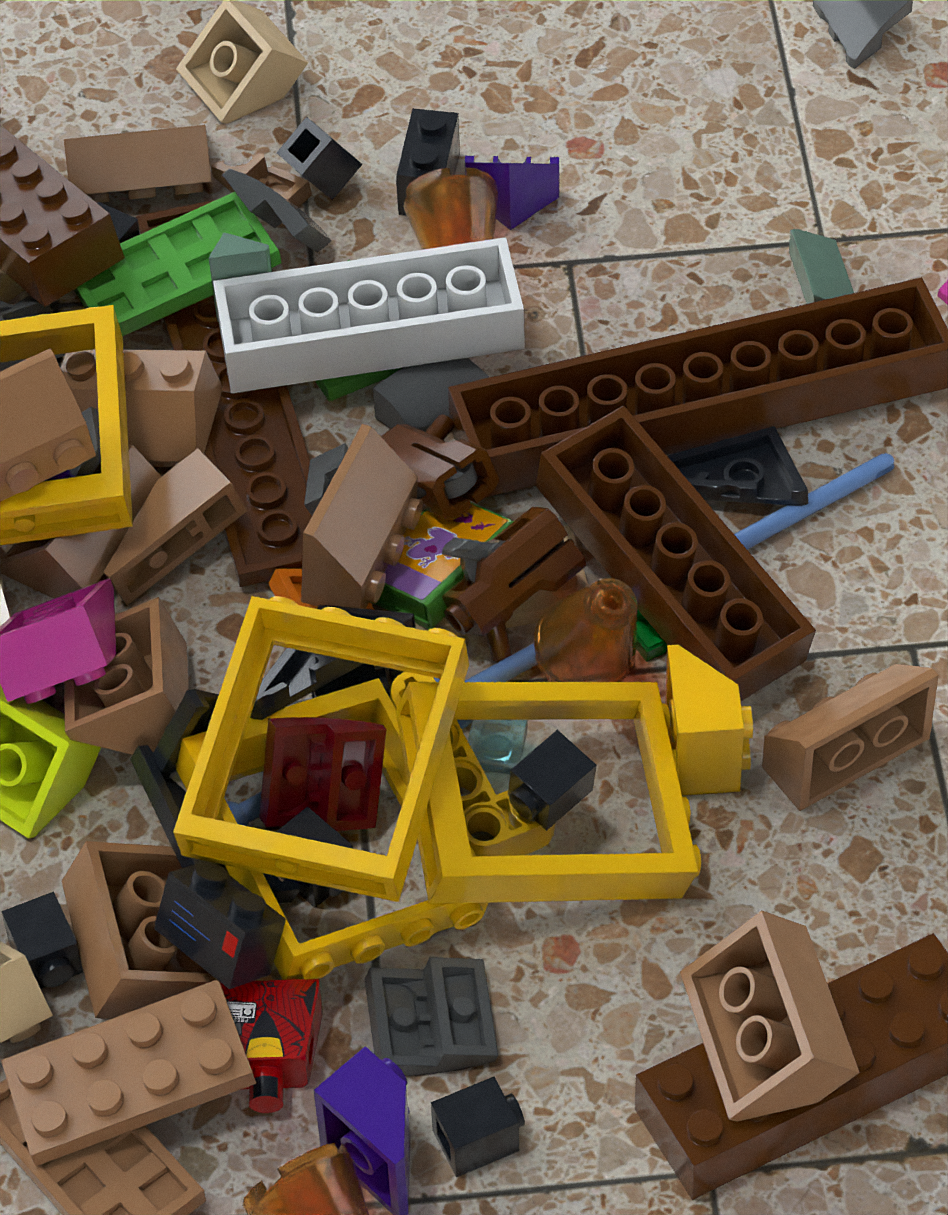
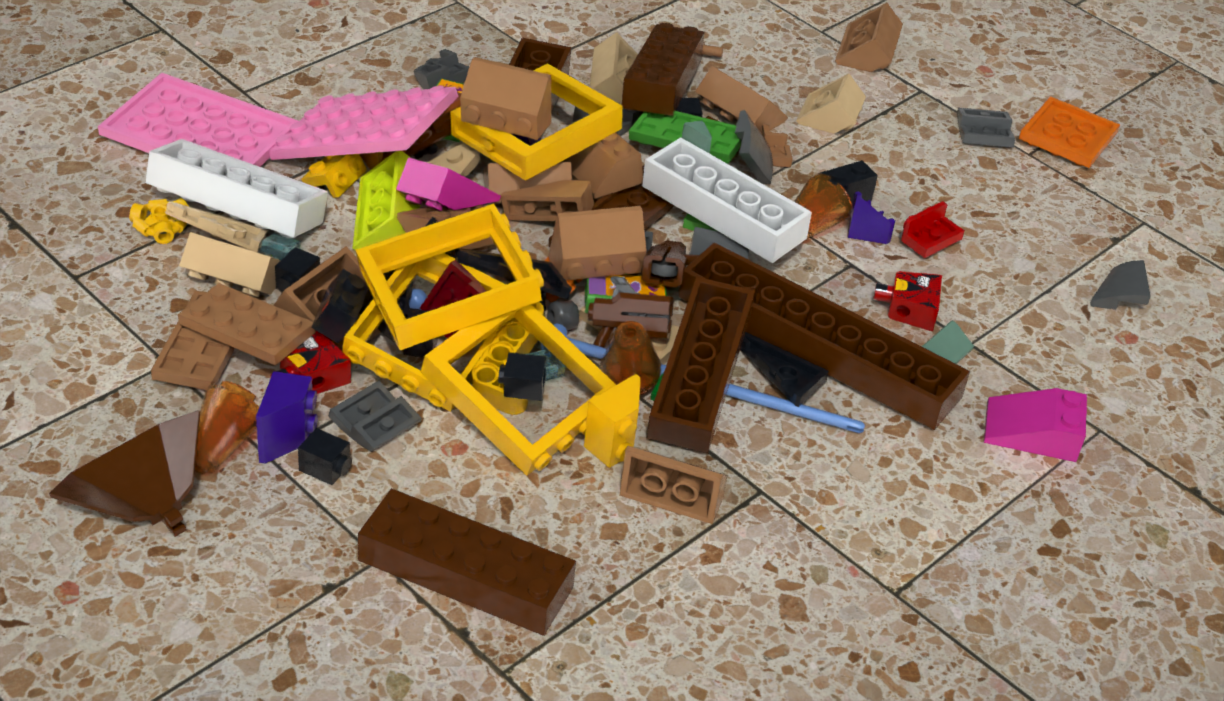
camera: 45 degrees right, 10 degrees down
(319, 158) = (803, 151): black brick -> none
(597, 134) = (930, 230): none -> red bracket
(708, 242) = (912, 298): none -> red torso
(768, 1019) = (457, 511): medium nougat slope -> none

